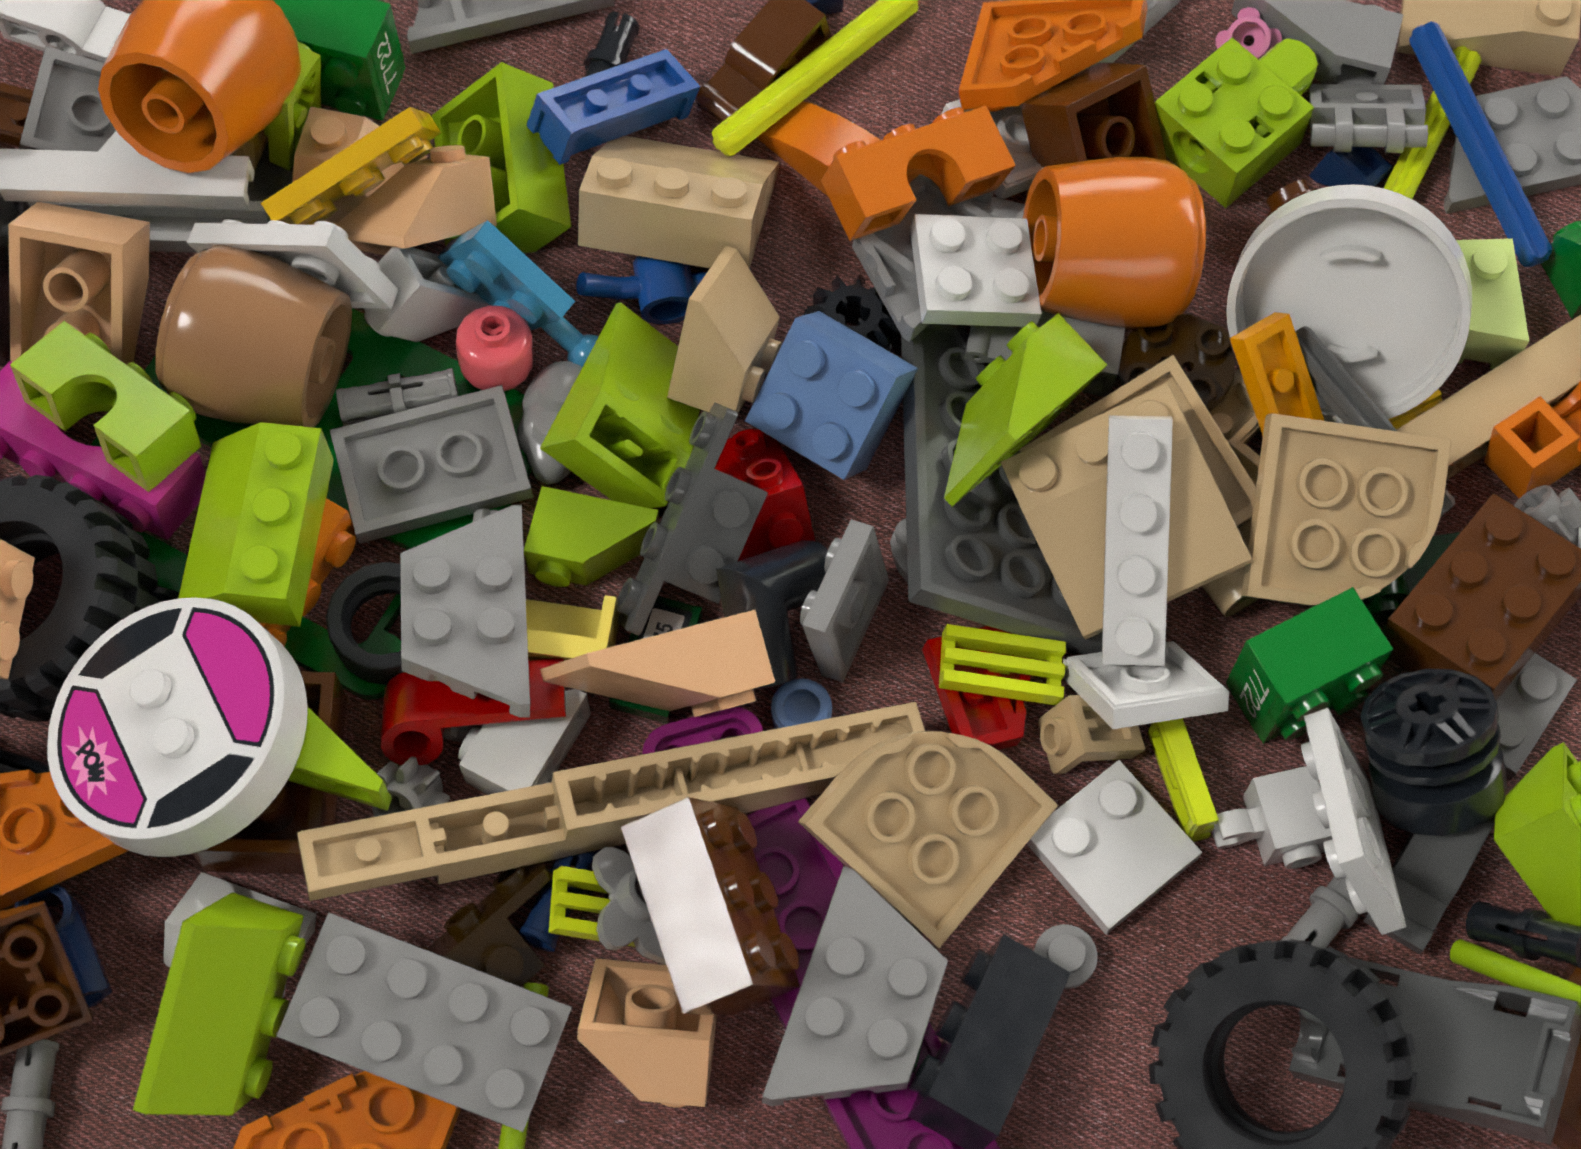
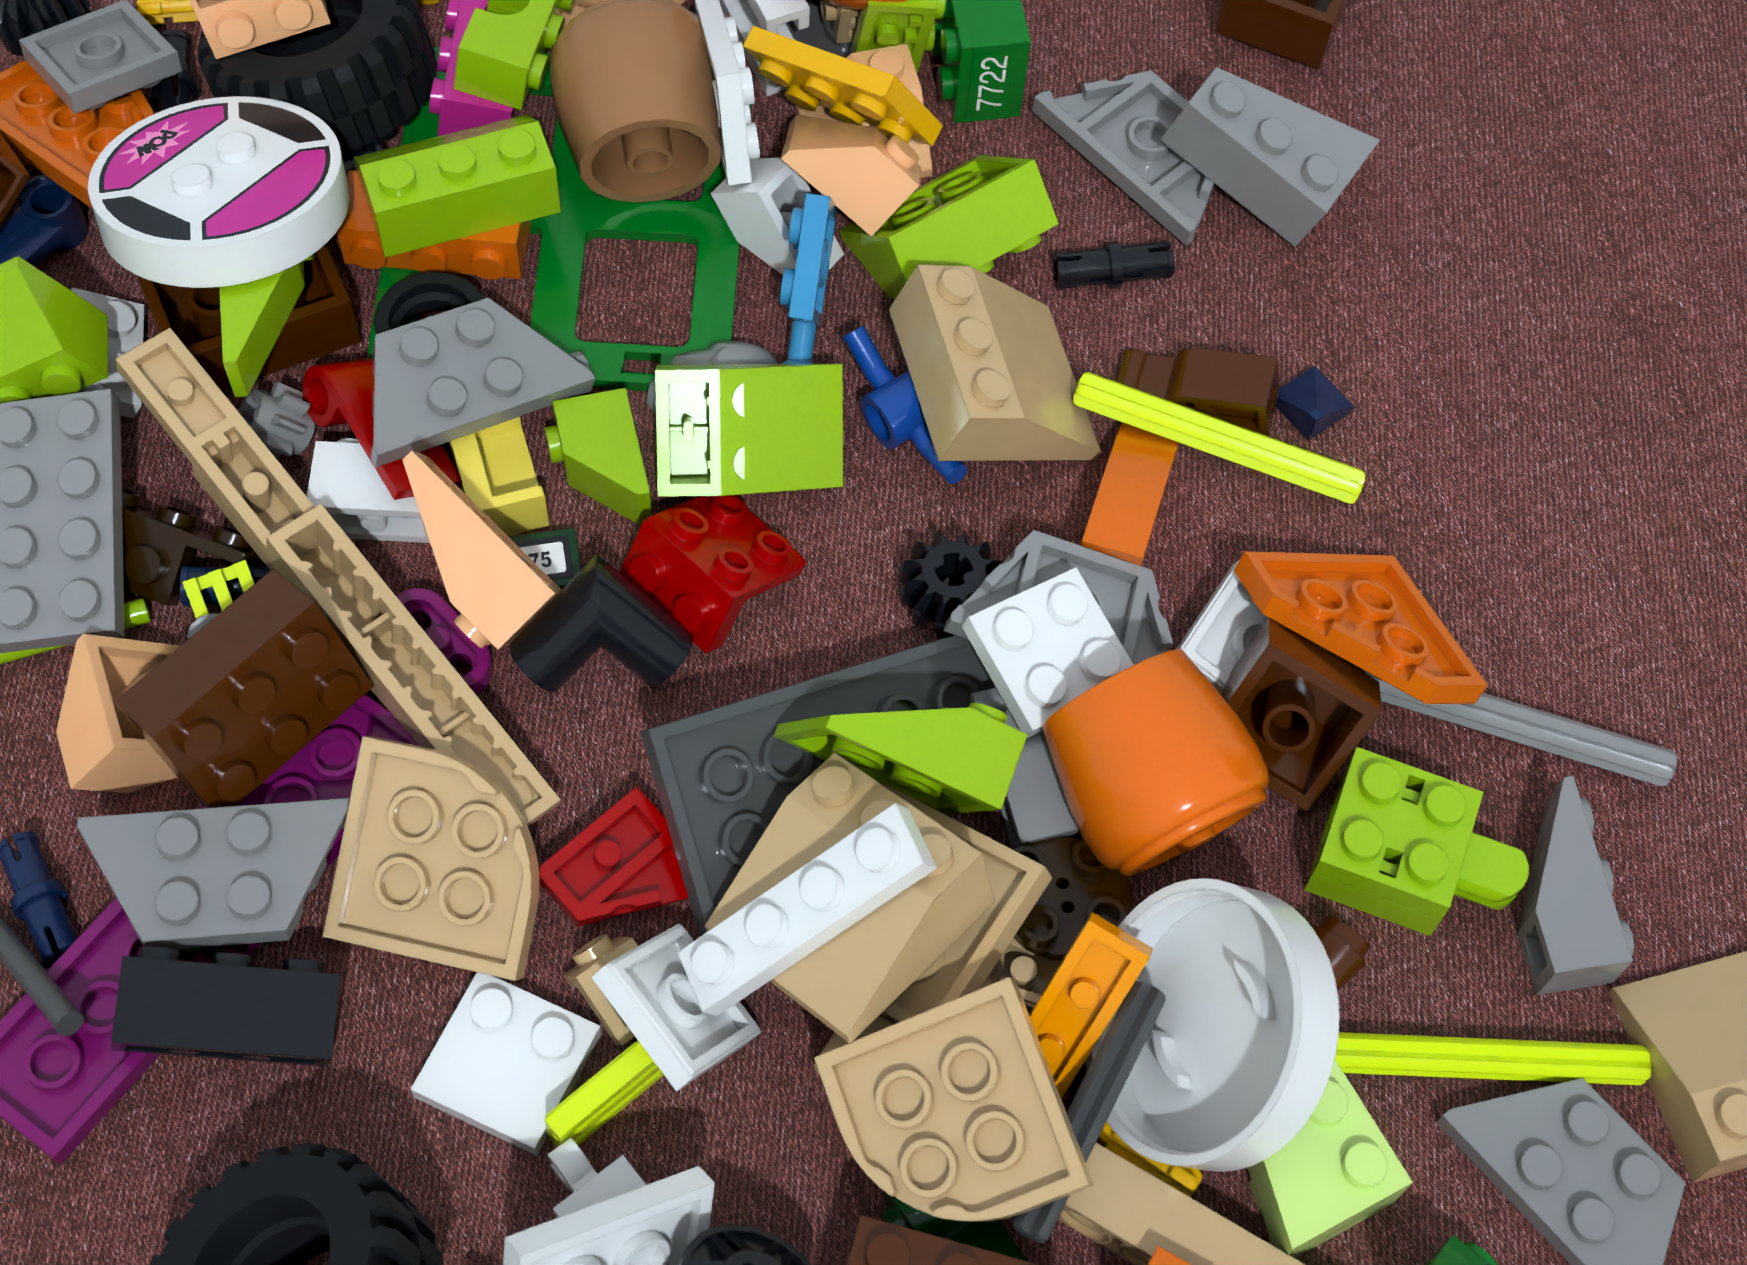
camera: 60 degrees right, 5 degrees down
(394, 395) = (664, 244): light grey pin -> none
(430, 464) = (610, 298): light grey plate -> none
(494, 348) = (746, 292): coral head -> none
(612, 104) = (1058, 274): blue container -> none
(700, 529) = (645, 531): dark grey bracket -> none
(725, 338) = (854, 464): tan slope -> none
(800, 703) = (524, 714): medium blue tile -> none
(831, 394) = (849, 586): medium blue brick -> none
(846, 600) = (629, 687): light grey plate -> none
(956, 152) = (1090, 508): orange arch -> none
(1008, 644) = (624, 813): neon yellow tile -> none
(1071, 950) = (365, 1060): light grey plate -> none
(1251, 25) = (1505, 809): bright pink plate -> none
(1309, 665) = (776, 1160): green brick -> none
(1359, 167) = (1428, 995): dark blue slope -> none
(1368, 116) = (1507, 986): light grey plate -> none
(1480, 144) = (1524, 1112): blue axle -> none

